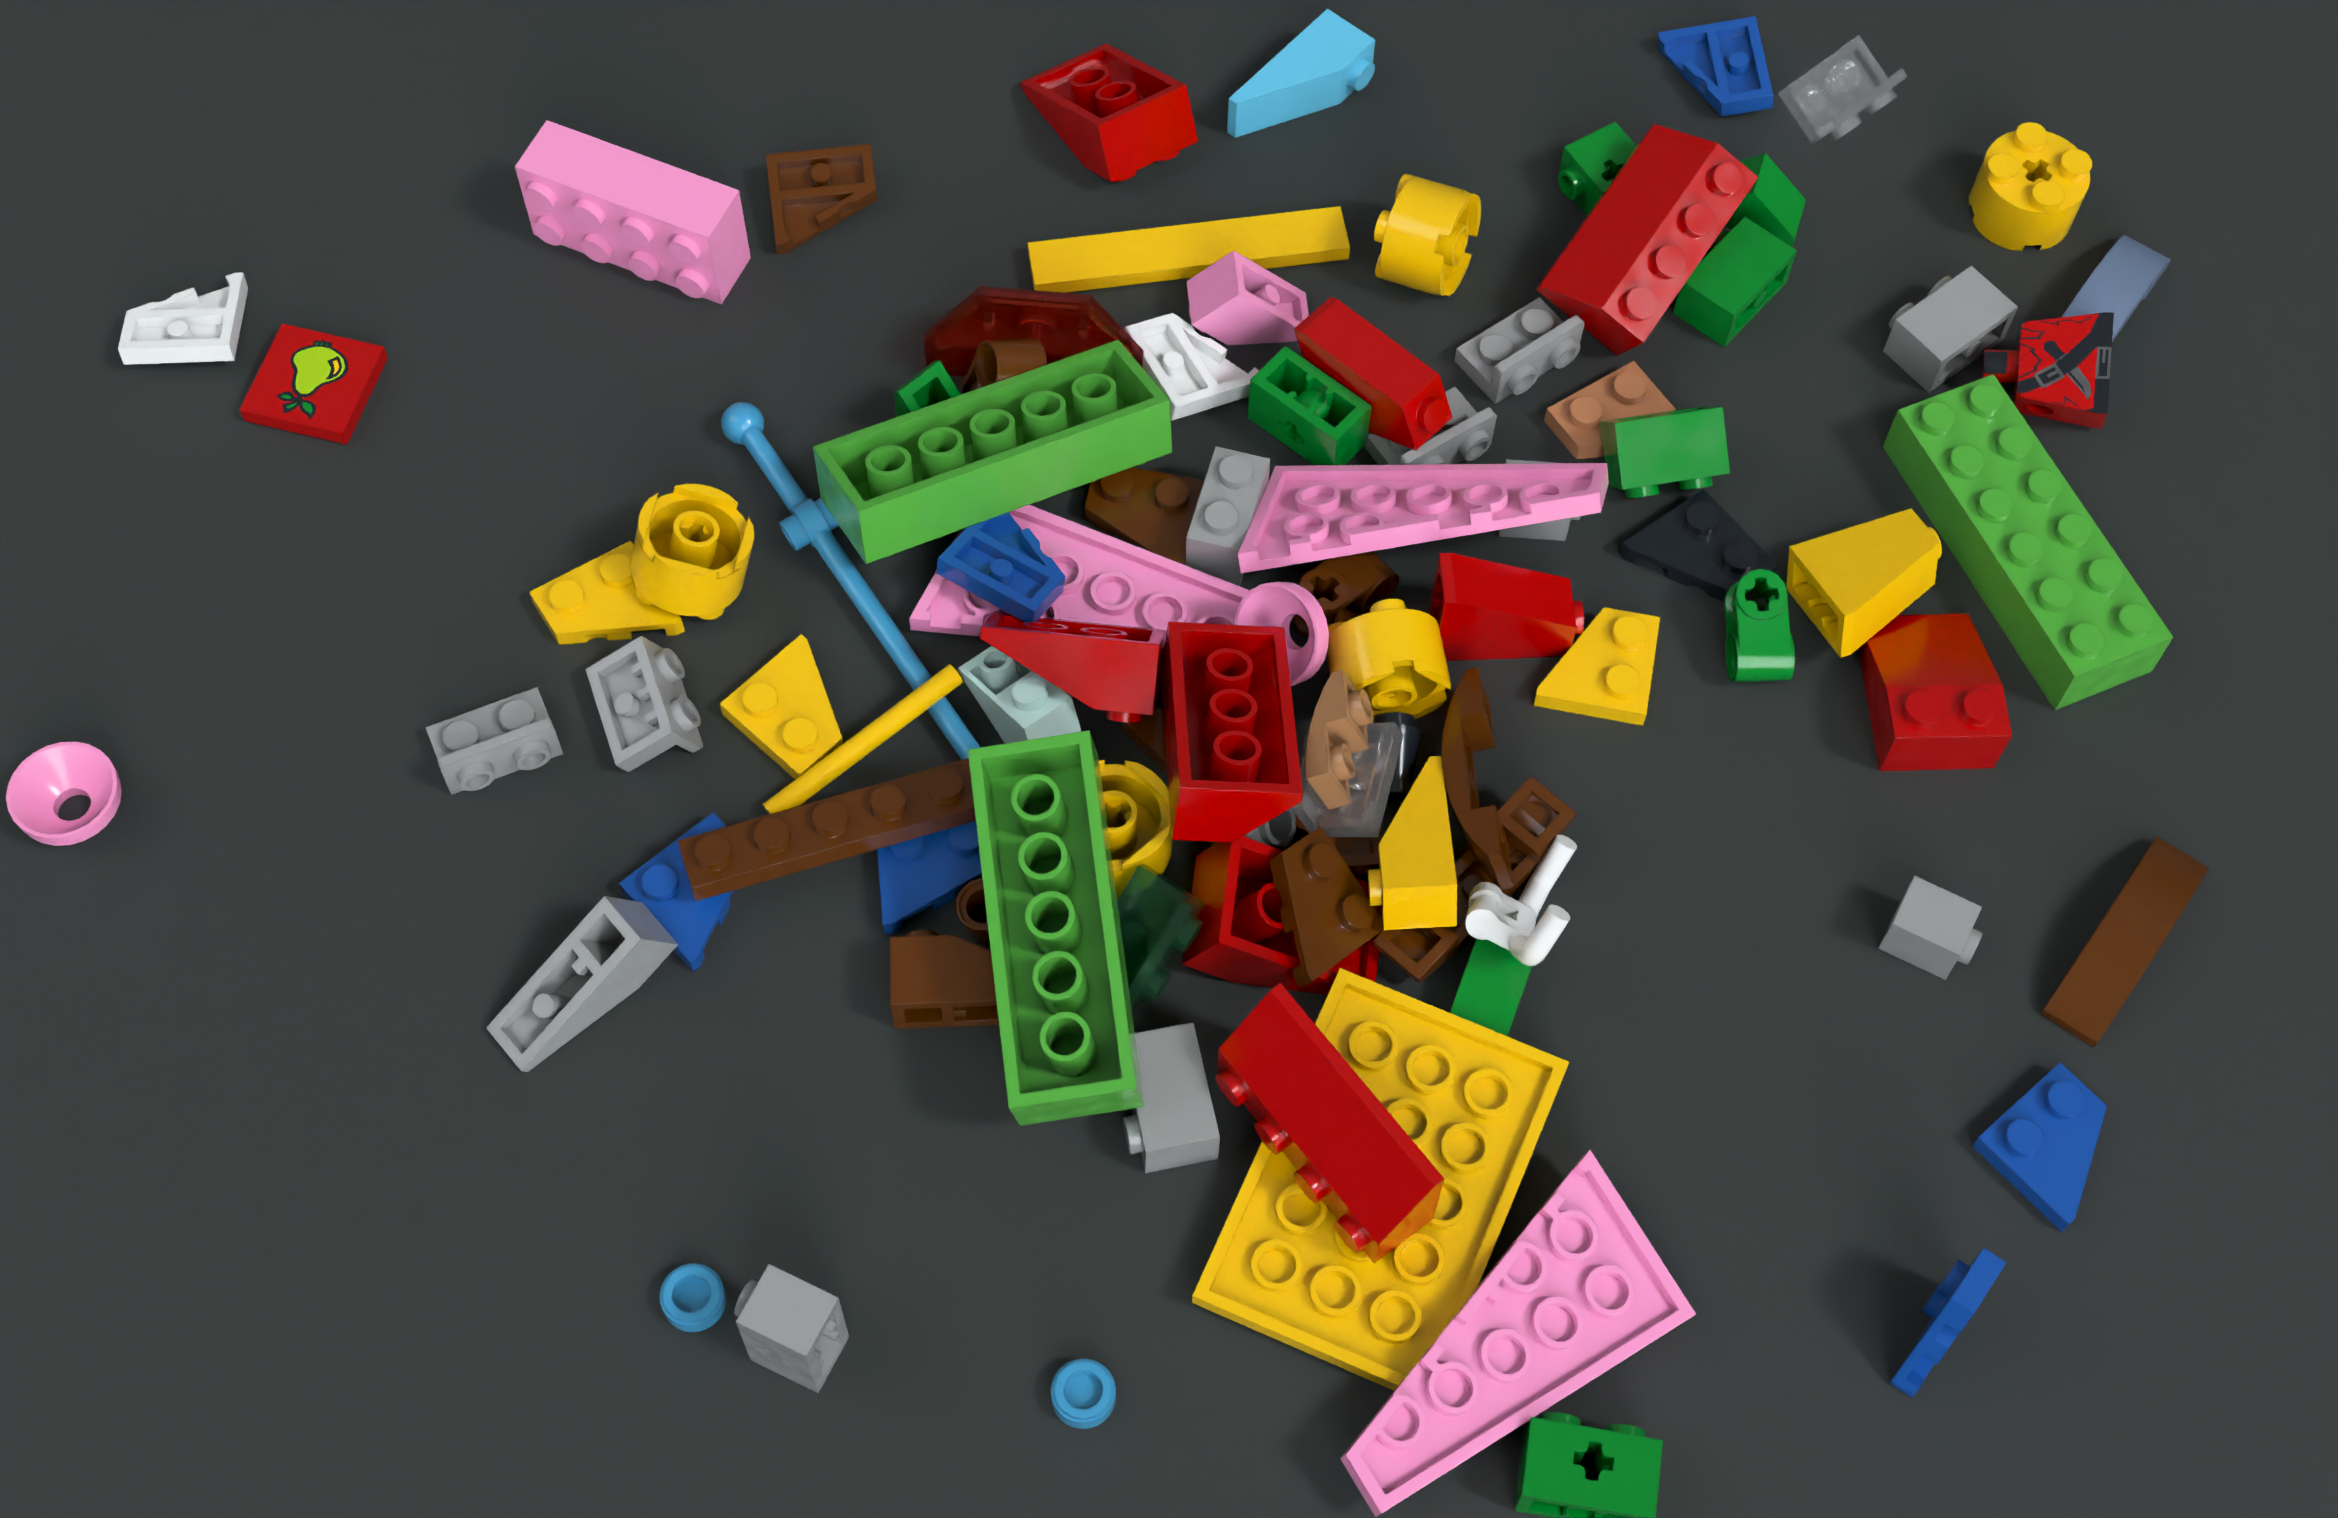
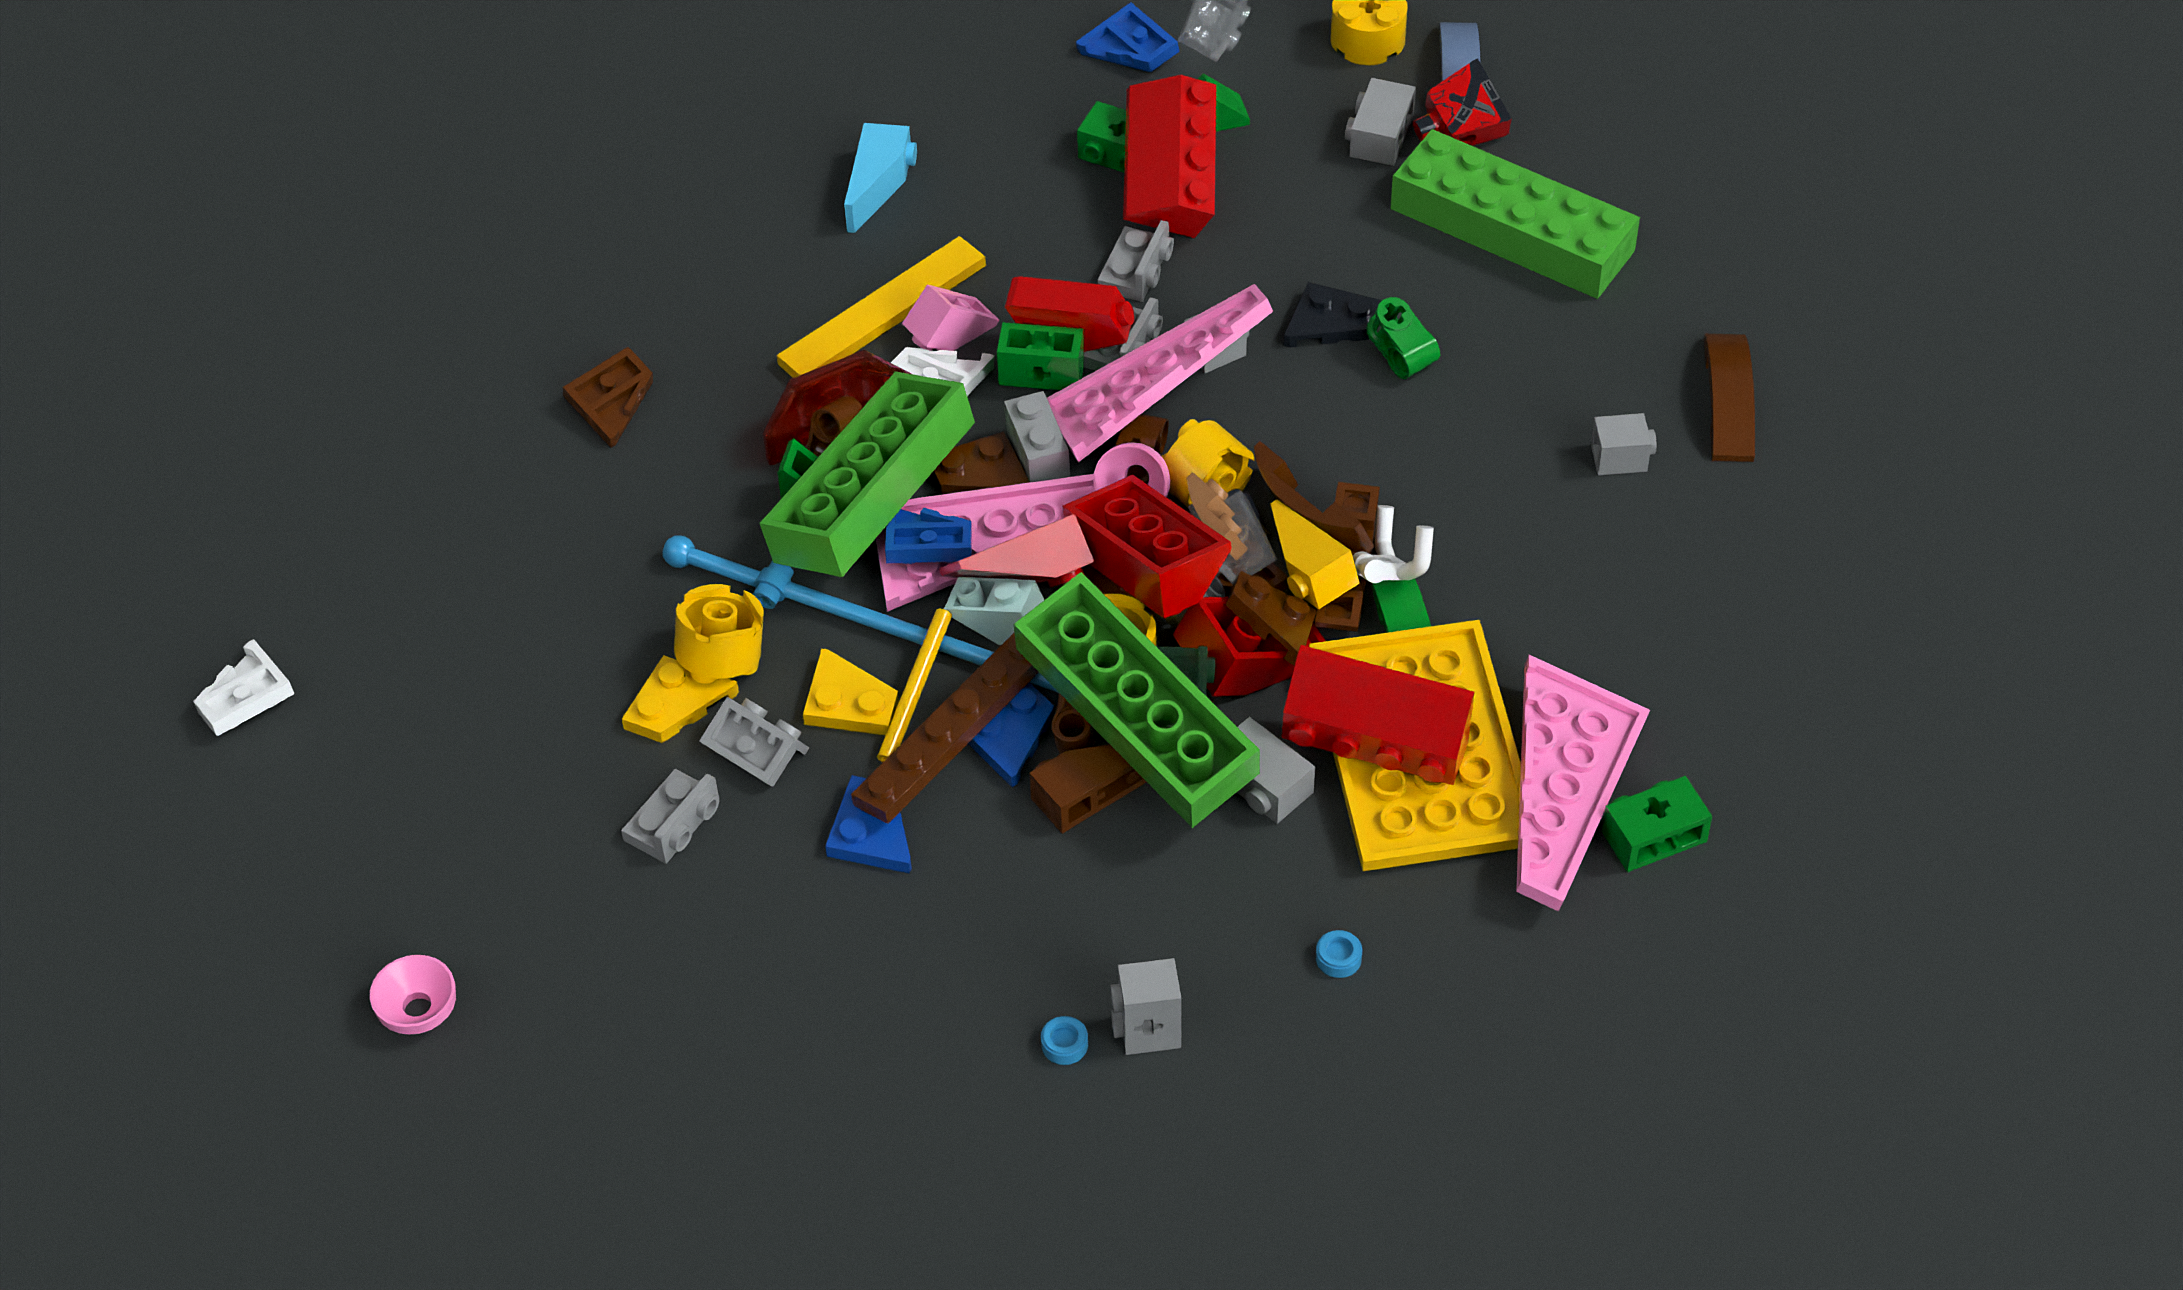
camera: 30 degrees left, 10 degrees down
(314, 384) = (361, 680): red tile -> none
(582, 980) = (850, 910): light grey slope -> none
(634, 212) = (507, 461): bright pink brick -> none
(1114, 111) = (769, 251): red slope -> none
(1427, 235) = (1032, 222): yellow brick -> none
(1502, 610) = (1249, 402): red slope -> none
(1605, 669) = (1329, 410): yellow wing -> none
(1615, 396) = (1224, 269): nougat wing -> none
(1665, 448) = (1274, 265): green brick -> none
(1734, 281) = (1238, 157): green brick -> none
(1863, 576) = (1440, 278): yellow slope -> none
(1933, 695) = (1525, 323): red slope -> none
(1950, 1310) = (1786, 627): blue wing -> none
(2047, 1143) = (1768, 522): blue wing -> none

